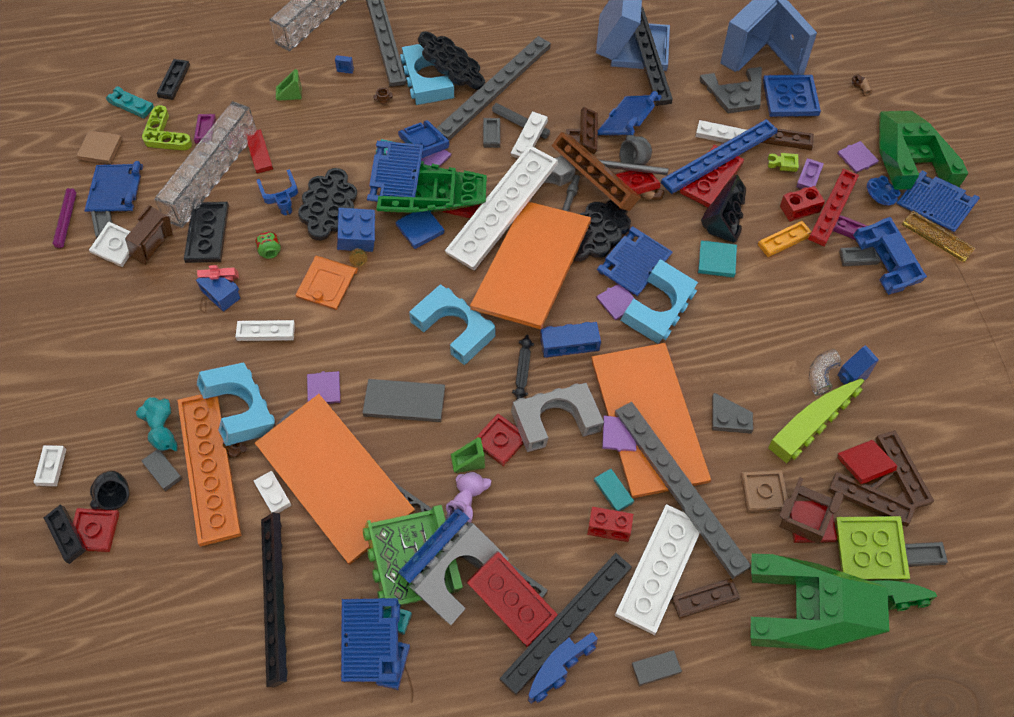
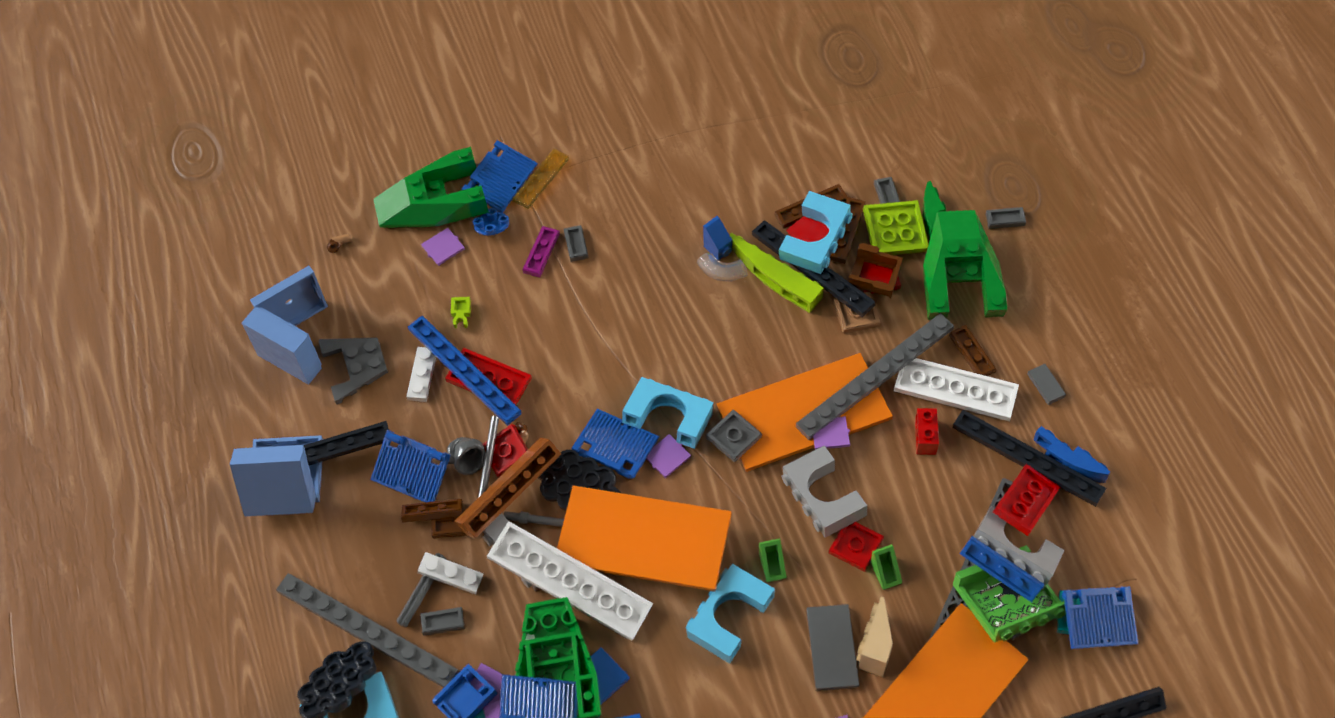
camera: 95 degrees left, 0 degrees up
(395, 429) = (877, 642): none -> tan slope
(469, 485) = (917, 560): lavender animal -> none
(495, 364) = (772, 560): none -> bright green slope
(523, 367) = (769, 534): black wheel -> none
(570, 339) = (728, 490): blue brick -> none
(613, 490) = (887, 435): teal tile -> none
(626, 350) = (733, 435): none -> dark grey tile
(717, 259) = (598, 367): teal tile -> none
(725, 212) = (548, 364): black wedge -> none
(730, 416) = (784, 344): dark grey wing -> none
(784, 239) = (563, 308): light orange tile -> none
(791, 95) = (361, 308): blue plate -> none
(791, 139) = (424, 303): reddish brown tile -> none
(802, 203) = (520, 291): red brick -> none
(809, 174) = (477, 287): medium lavender plate -> none
(818, 454) = (828, 279): none -> black plate
(833, 207) = (518, 264): red tile -> none
(876, 477) = (816, 254): none -> medium azure arch
(889, 681) = (1005, 218): none -> dark grey tile
(894, 253) = (576, 210): blue bracket -> none

